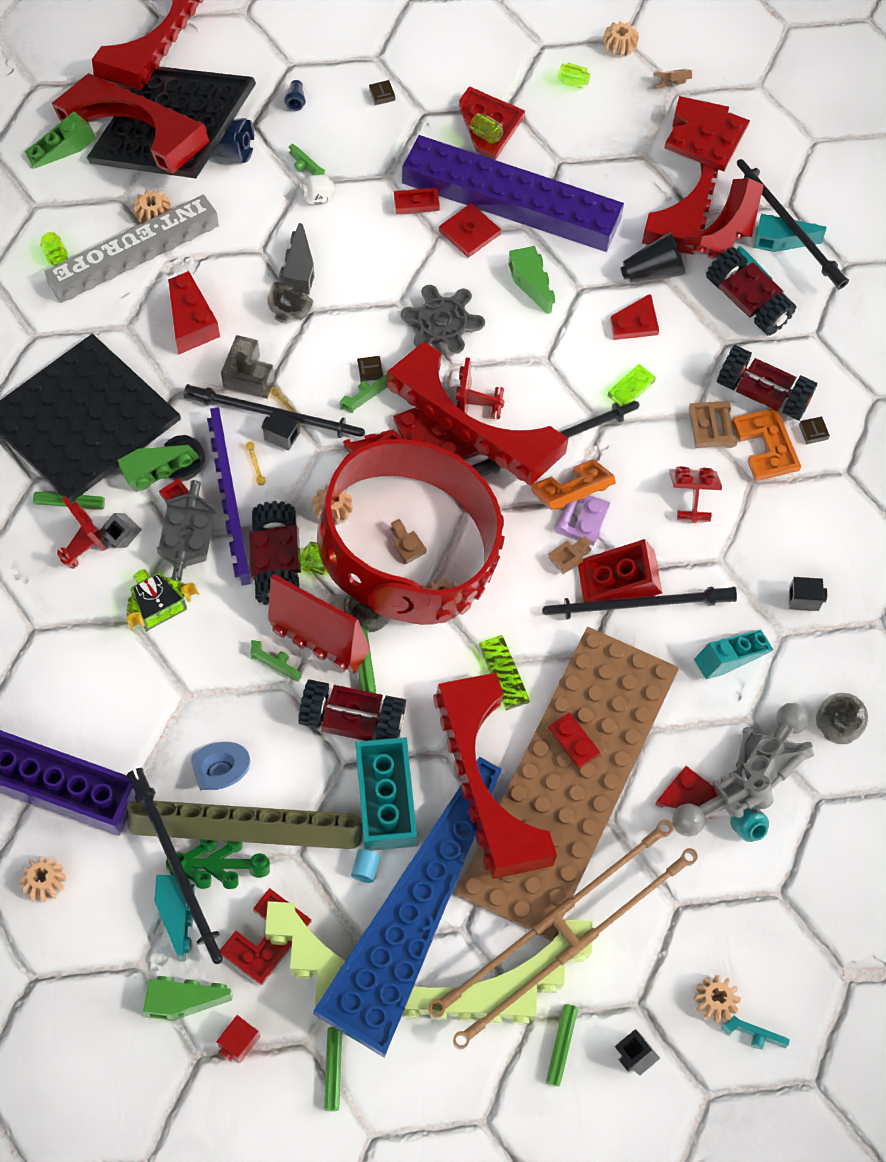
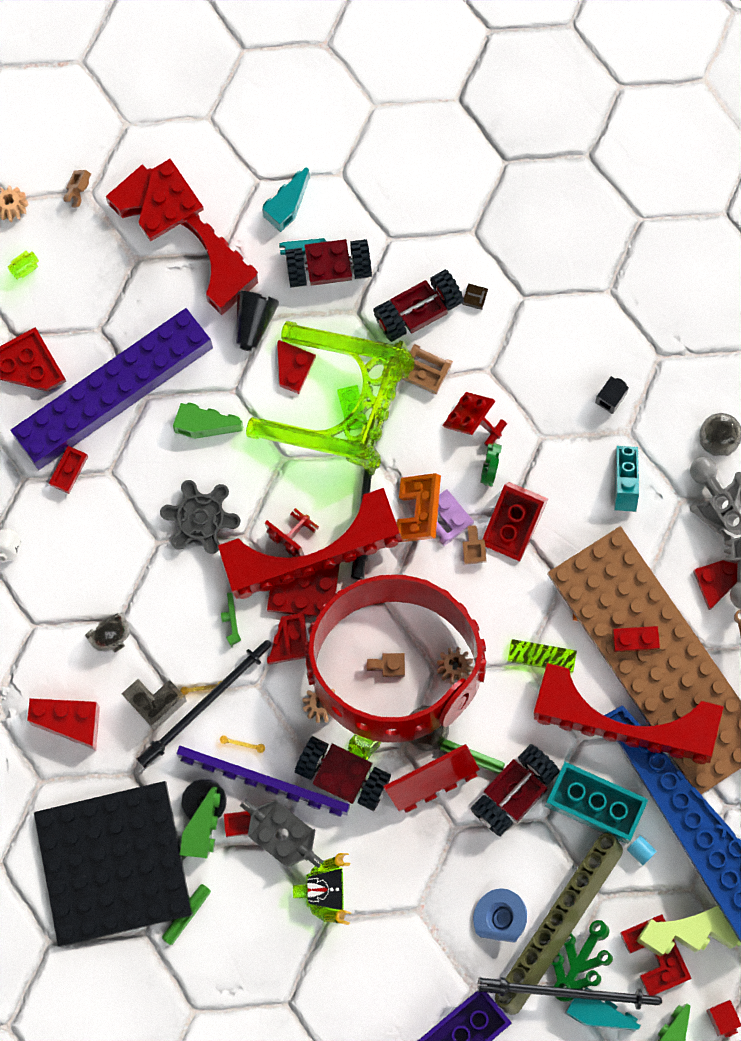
camera: 55 degrees left, 10 degrees up
(84, 539) = (238, 919): red plate -> none
(120, 530) = (247, 886): black brick -> none
(277, 663) = (434, 822): bright green piece -> none
(280, 430) = (228, 707): black brick -> none
(299, 263) = (76, 602): dark grey slope -> none
(370, 368) = (209, 602): dark brown tile -> none
(469, 230) = (124, 443): red plate -> none
(486, 128) = (38, 370): clear neon green brick -> none
(641, 386) = (357, 449): none -> clear neon green arch
(660, 522) = (489, 470): none -> green plate
(709, 596) = (570, 465): black bar -> none
(734, 221) = (256, 234): red arch -> none
(781, 454) = (468, 330): orange plate -> none
(829, 267) = (346, 191): black bar -> none

